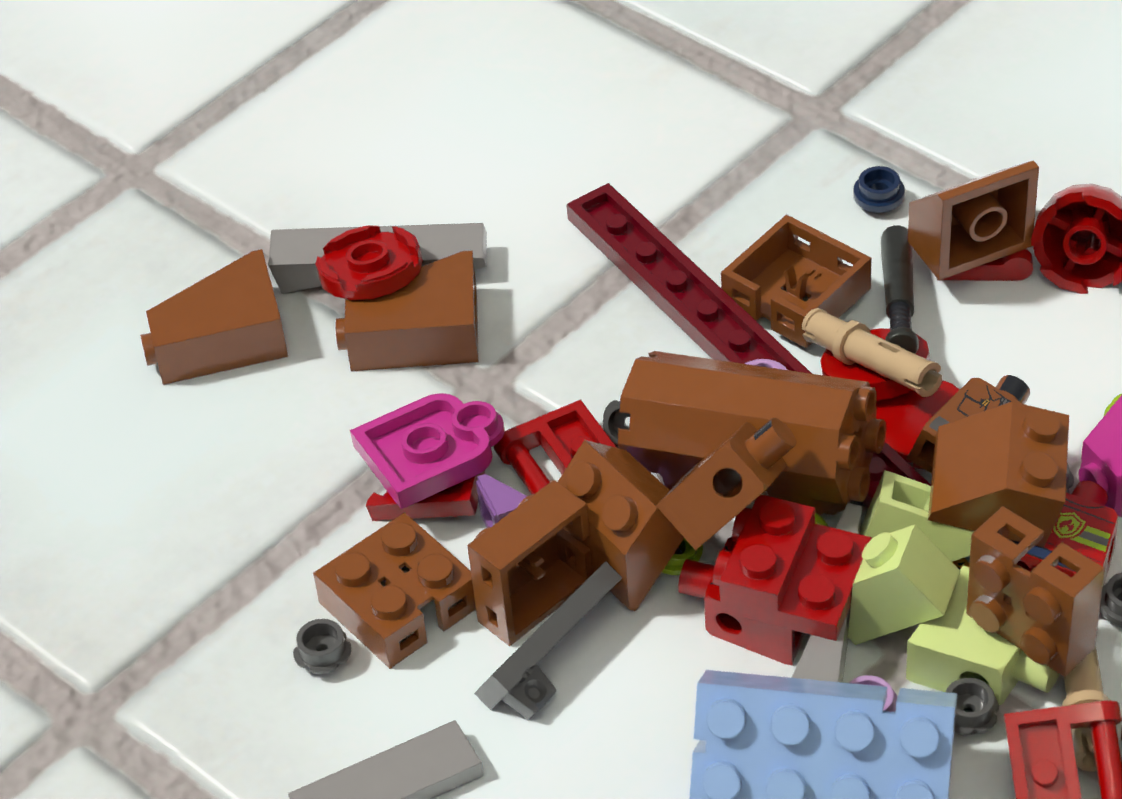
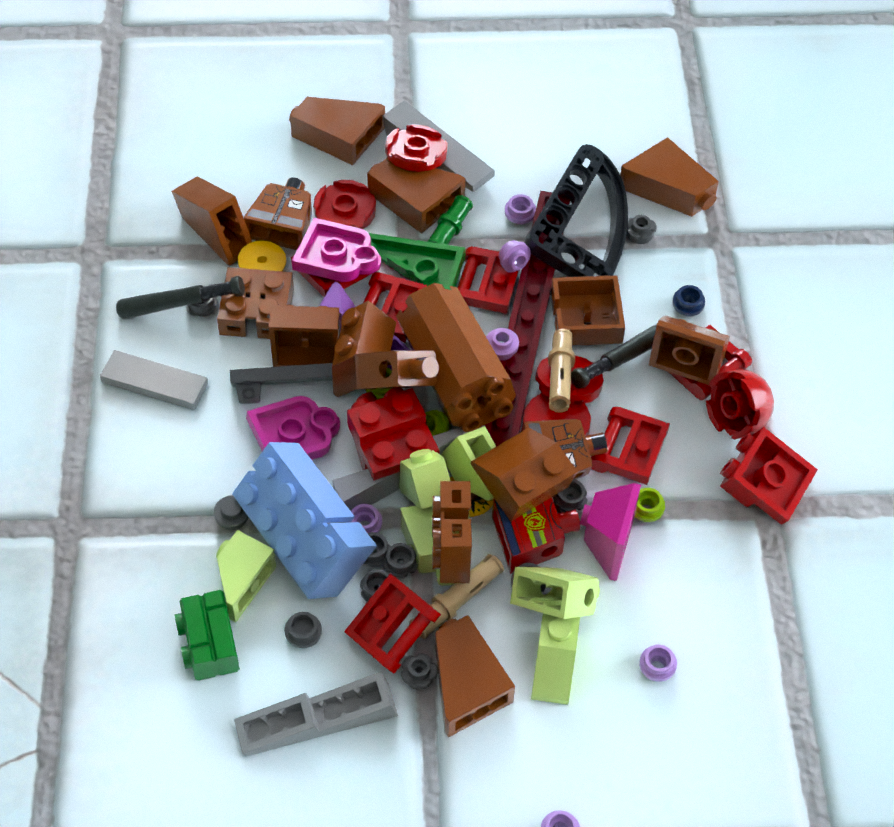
camera: 40 degrees right, 10 degrees up
(209, 535) = (214, 217): none -> dark orange slope
(286, 672) = (170, 299): none -> pearl dark grey piece
(294, 468) = (280, 214): none -> dark orange torso
(327, 534) = (262, 256): none -> yellow piece
(342, 398) = (346, 204): none -> red tile
(508, 321) = (451, 222): none -> green pin
(545, 378) = (421, 260): none -> green wing
(565, 243) = (520, 209): none -> lavender plate
(594, 149) = (556, 243): none -> black beam
(640, 324) = (496, 285): none -> red plate
(643, 686) = (295, 422): none -> dark pink plate
(647, 283) = (514, 256): none -> lavender plate
(691, 87) = (670, 179): none -> dark orange slope
(724, 163) = (641, 229): none -> dark grey plate
(984, 745) = (370, 581): none -> dark grey plate
(1041, 360) = (640, 448): none -> red plate

